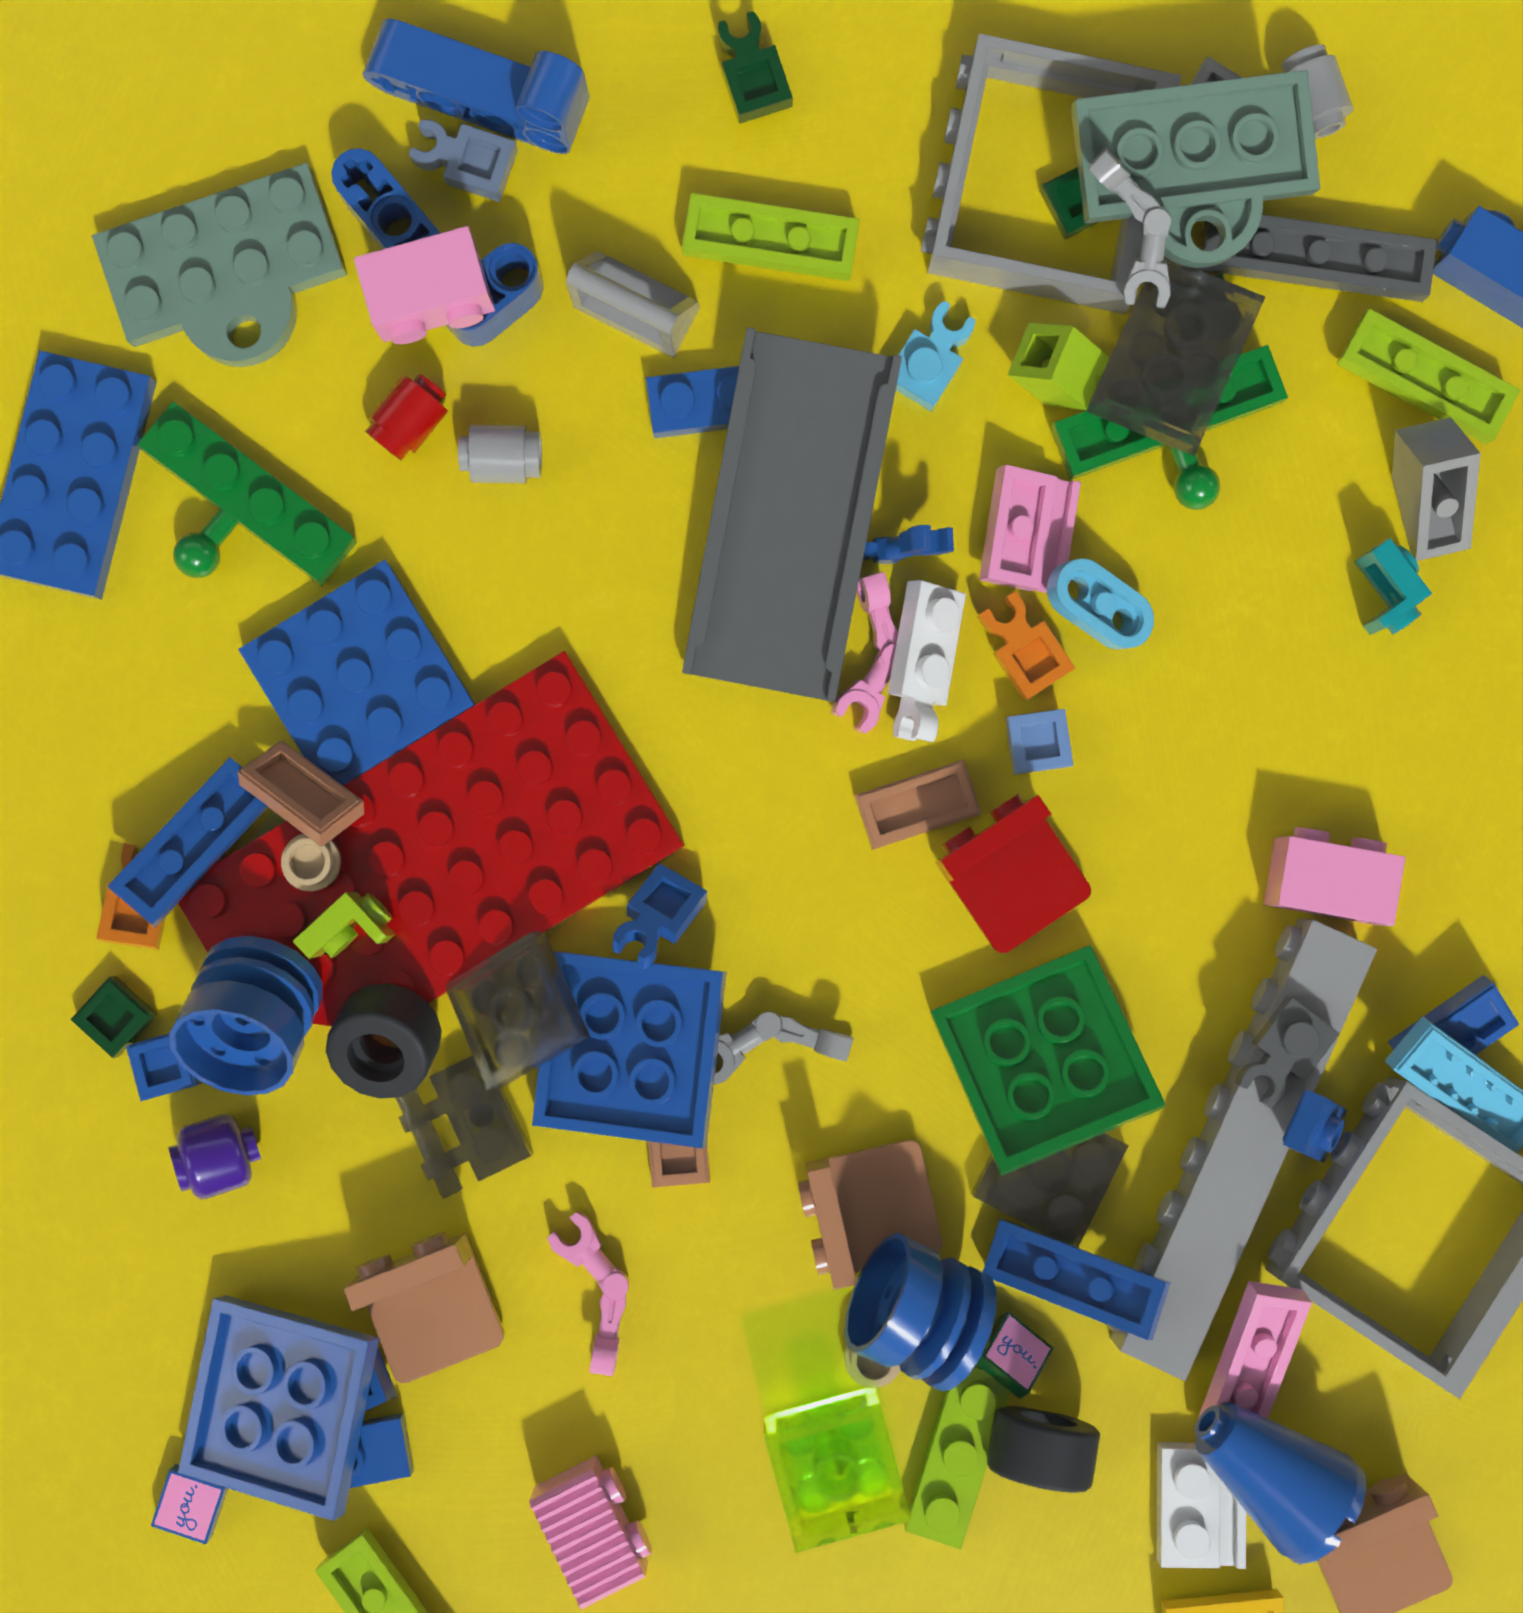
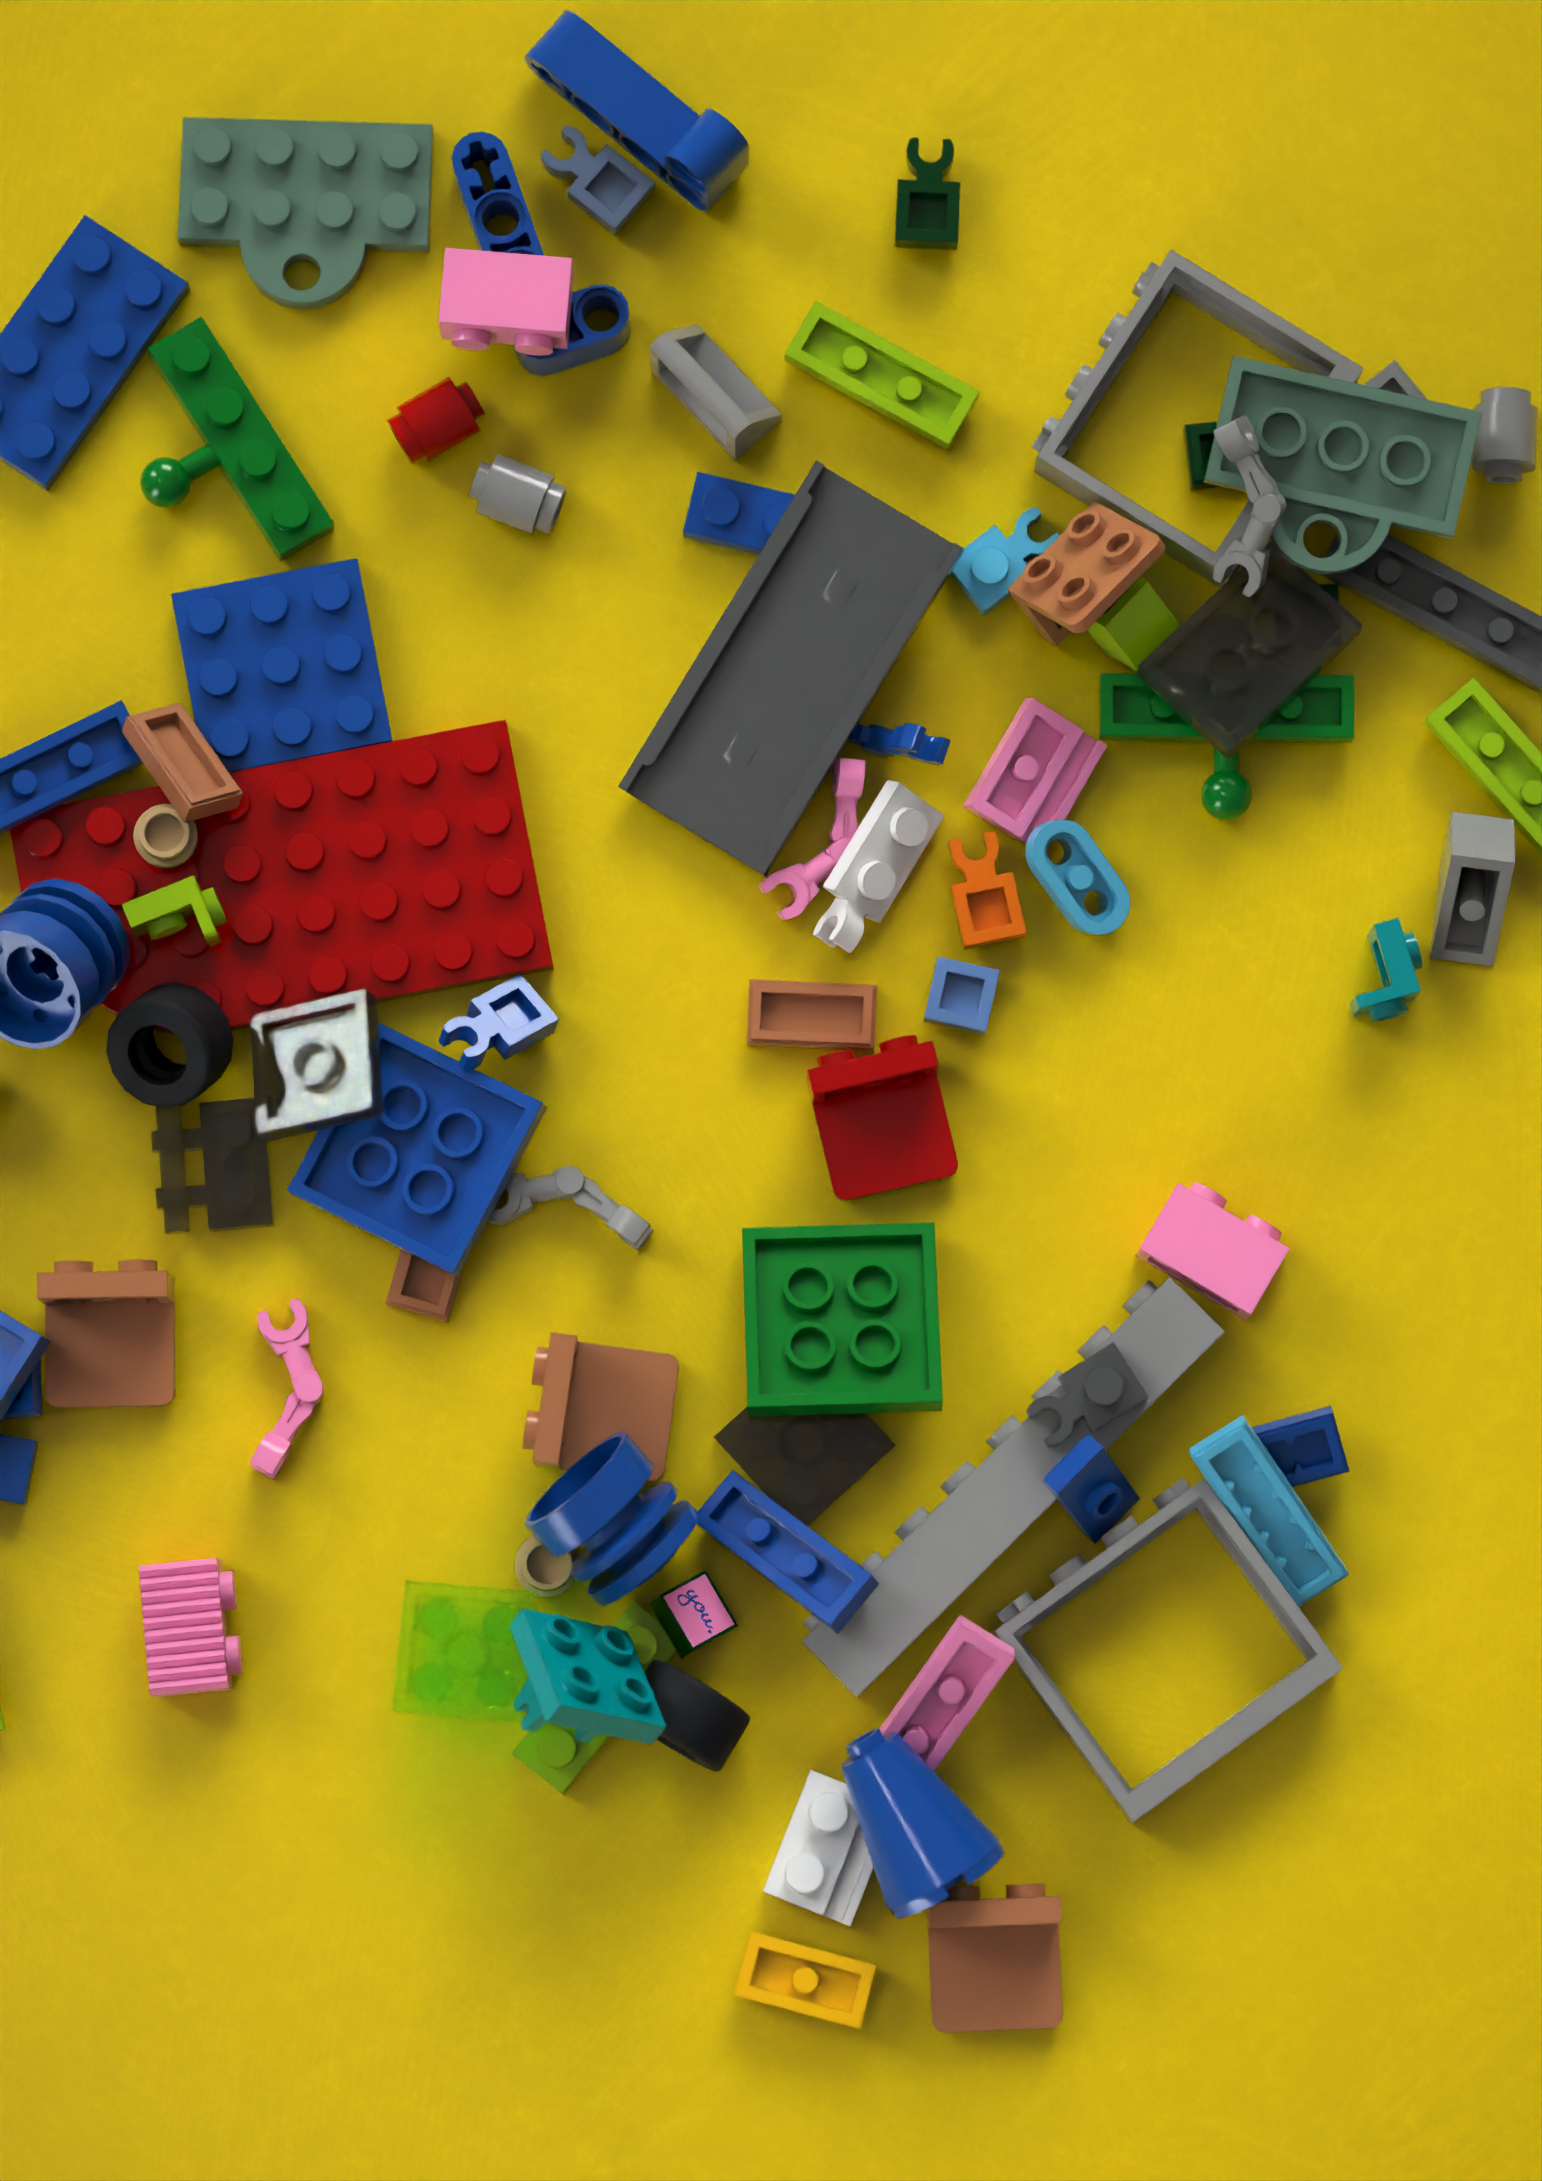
camera: 20 degrees right, 5 degrees down
(954, 1471) = (583, 1679): none -> teal plate
(1015, 338) = (1084, 572): none -> nougat bracket

